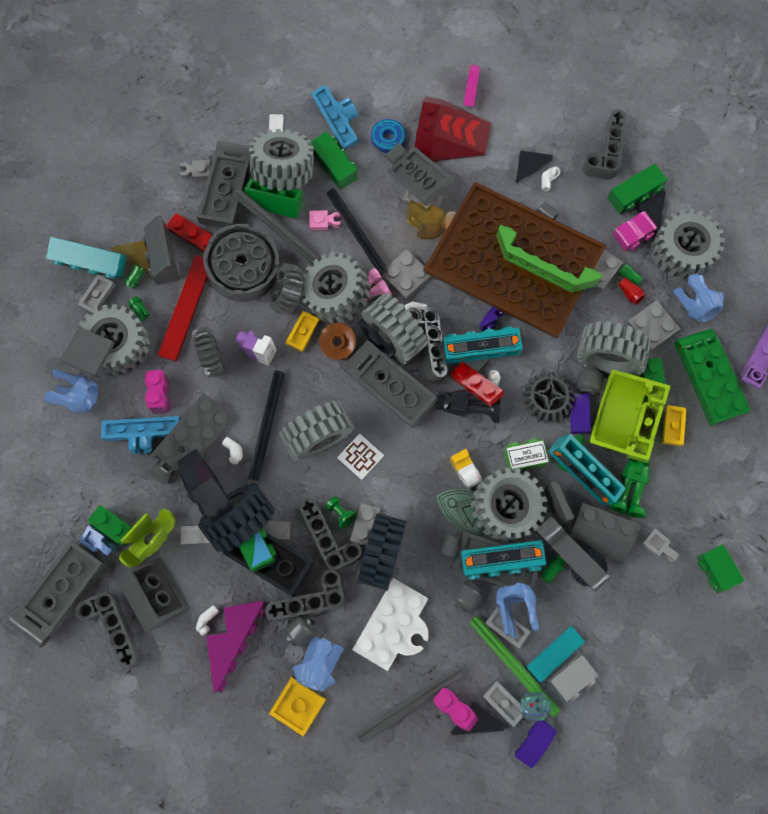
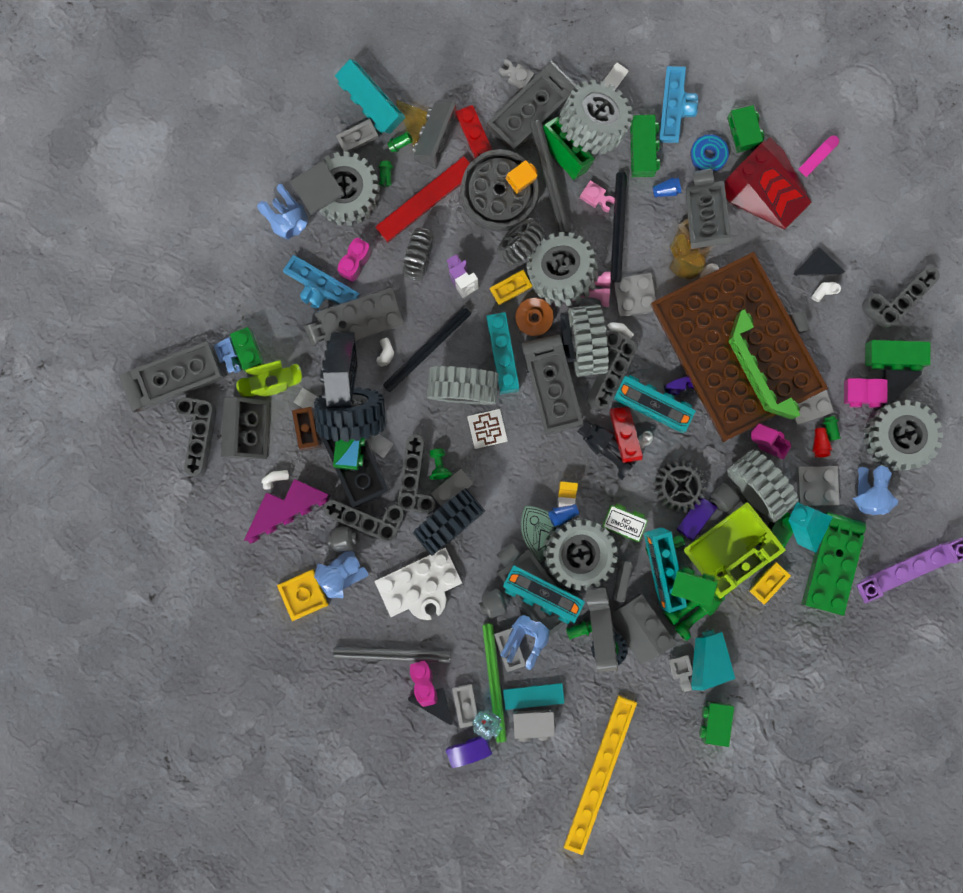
camera: 35 degrees right, 10 degrees up
(206, 557) = (306, 428): none -> reddish brown brick
(253, 237) = (522, 176): none -> light orange brick
(331, 385) = (502, 353): none -> teal brick
(374, 179) = (667, 188): none -> blue cone
(402, 101) = (745, 128): none -> green brick
(472, 481) = (563, 514): none -> blue cone
(592, 312) = (770, 441): none -> dark pink brick
(622, 464) = (695, 587): none -> green brick
(659, 685) = (600, 775): none -> yellow tile
(671, 357) = (809, 526): none -> teal slope
(677, 520) = (711, 661): none -> teal slope

